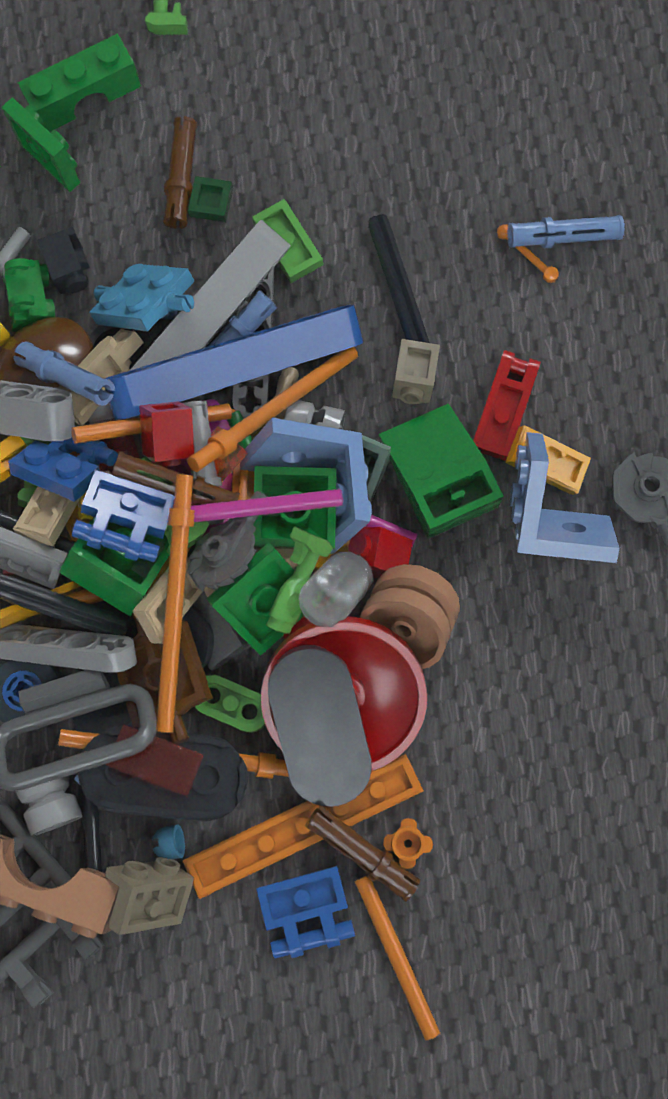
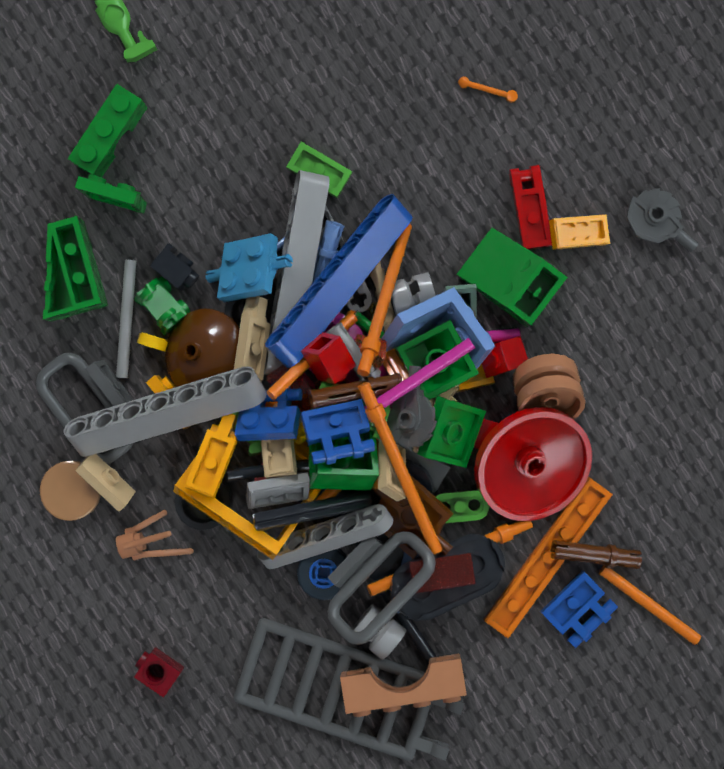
camera: 30 degrees left, 10 degrees up
(52, 367) = (224, 355): medium blue pin -> none
(148, 895) = (480, 652): dark tan bracket -> none
(170, 842) = (470, 614): dark azure hinge -> none
(179, 186) = (220, 169): reddish brown pin -> none
(210, 199) = (248, 168): dark green plate -> none
(305, 554) = (470, 418): bright green piece -> none
(319, 725) = (529, 492): tile -> none
(335, 589) = (495, 400): clear piece -> none
(397, 279) = (412, 159): black axle -> none
(415, 371) = (459, 217): dark tan bracket -> none
(420, 843) = (625, 538): orange plate -> none
(554, 531) = (609, 280): medium blue bracket -> none
(565, 231) = (497, 67): medium blue pin -> none

